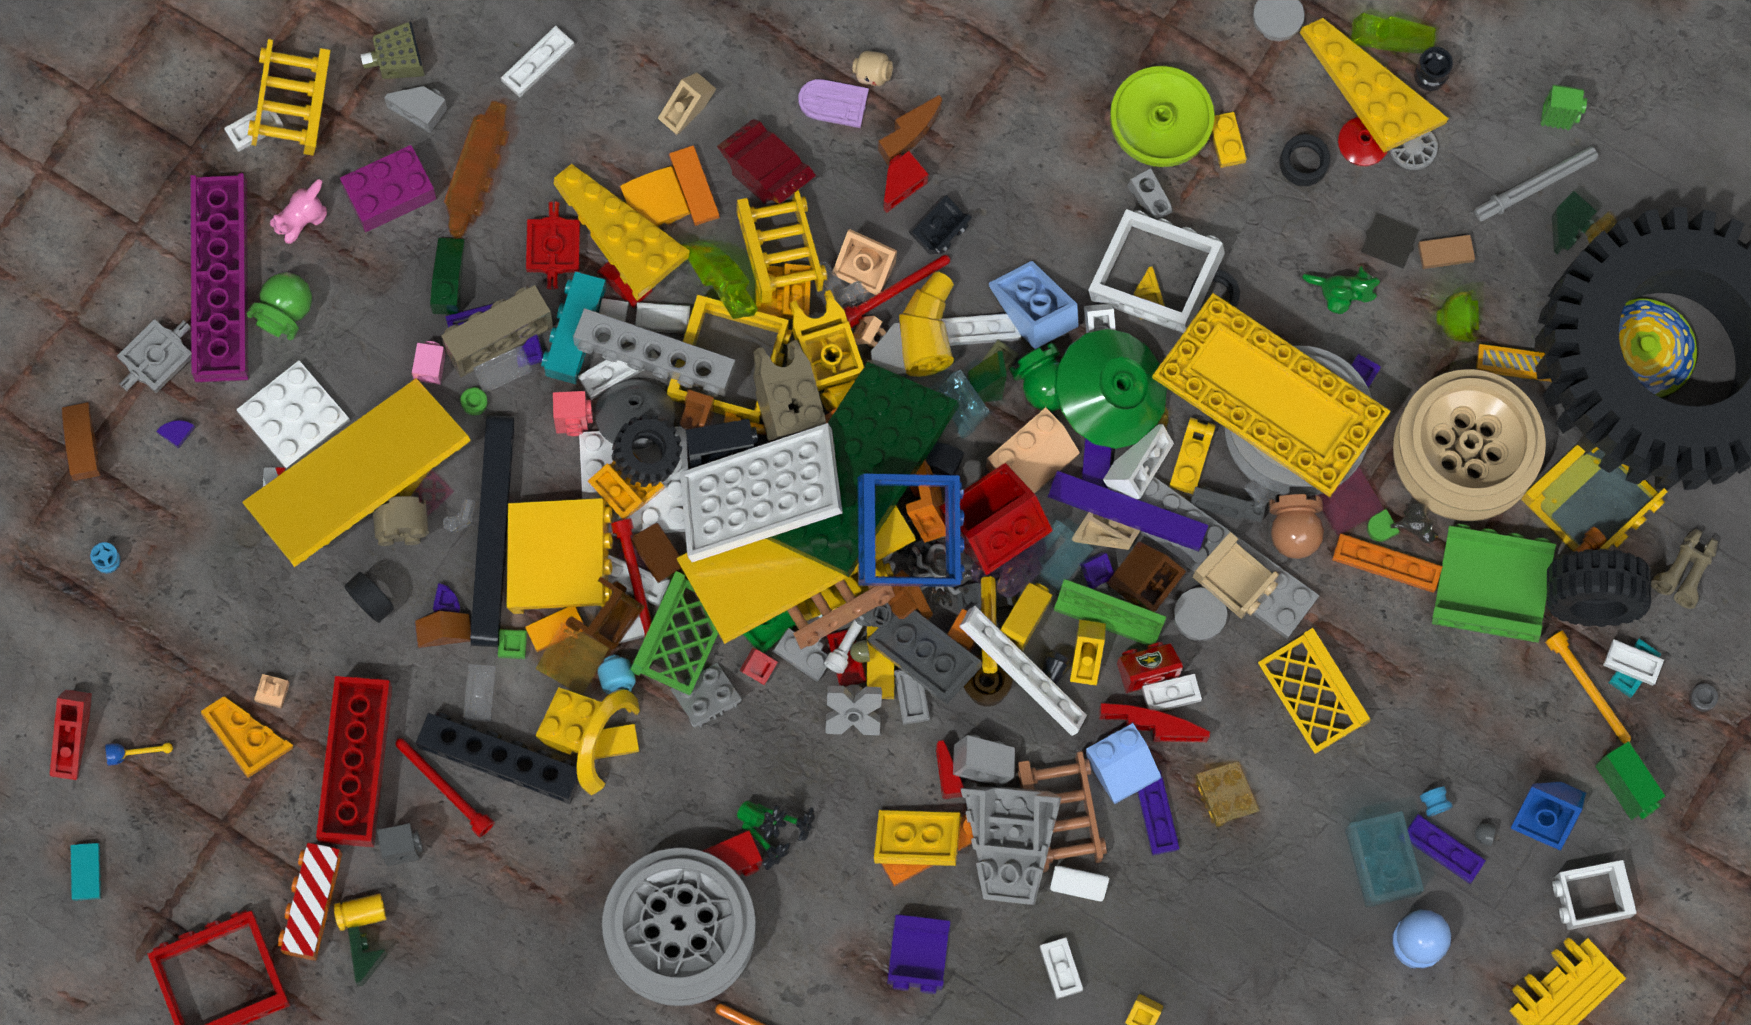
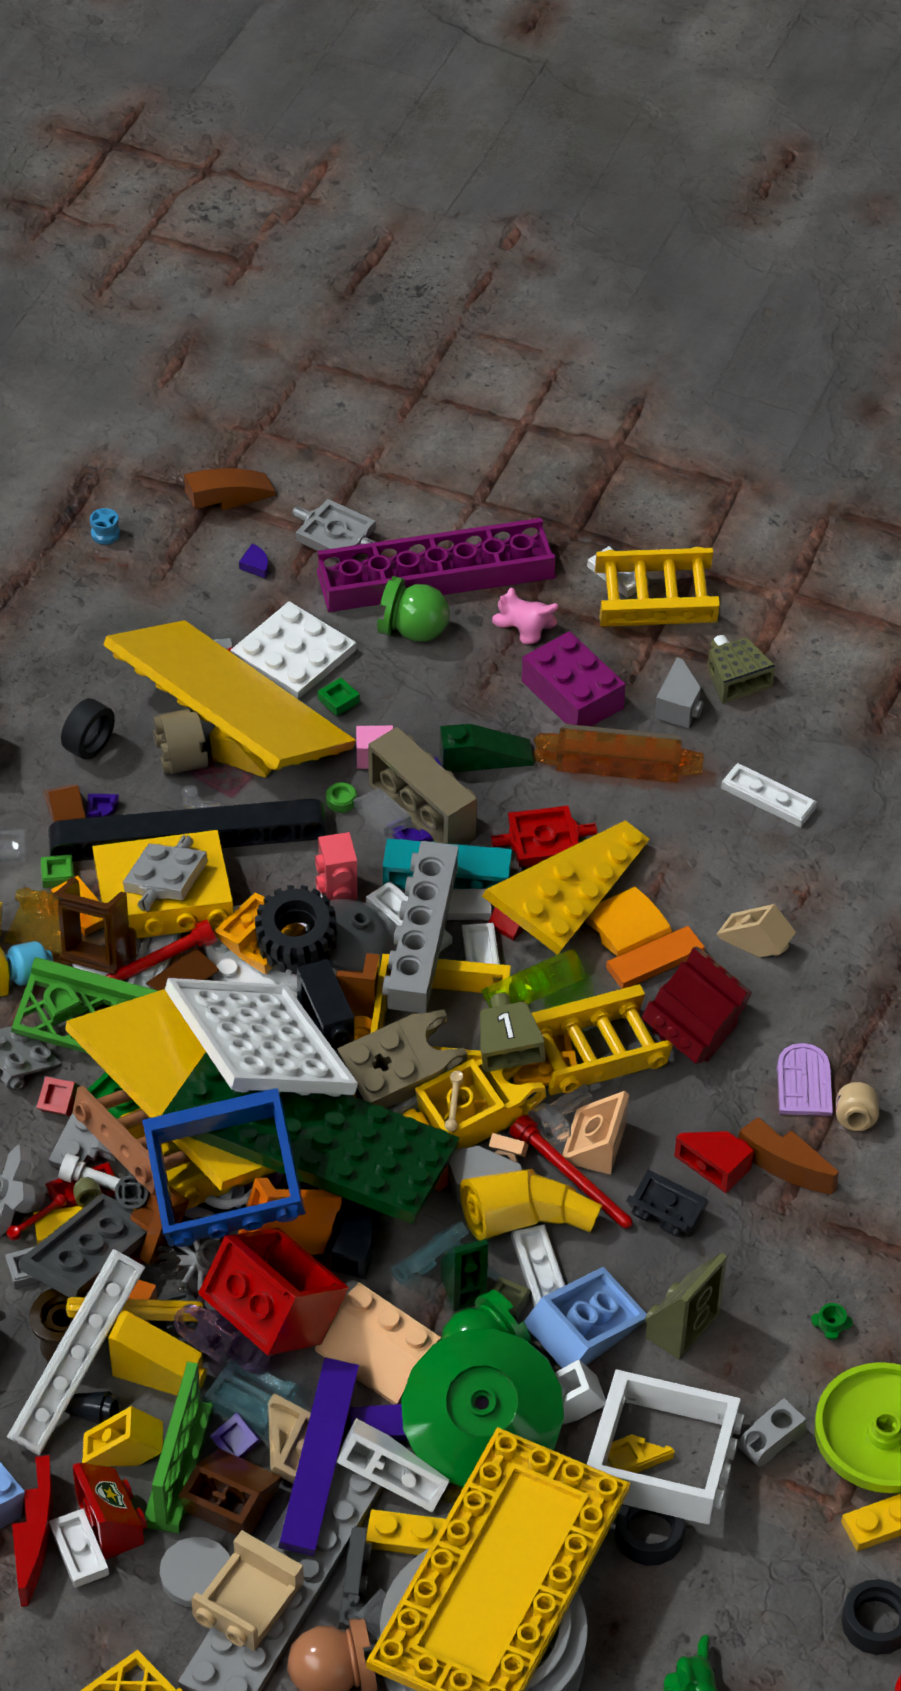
camera: 85 degrees right, 25 degrees down
(361, 384) = (338, 696): none -> green plate
(561, 547) = (165, 872): none -> light grey plate
(673, 650) = (60, 1001): none -> bright green tile
(787, 304) = (509, 1035): none -> olive torso
(816, 352) = (456, 1079): none -> tan hinge
(863, 674) = (14, 1232): none -> red hinge
(1044, 227) = (688, 1308): none -> olive slope
(1057, 126) = (835, 1313): none -> green plate

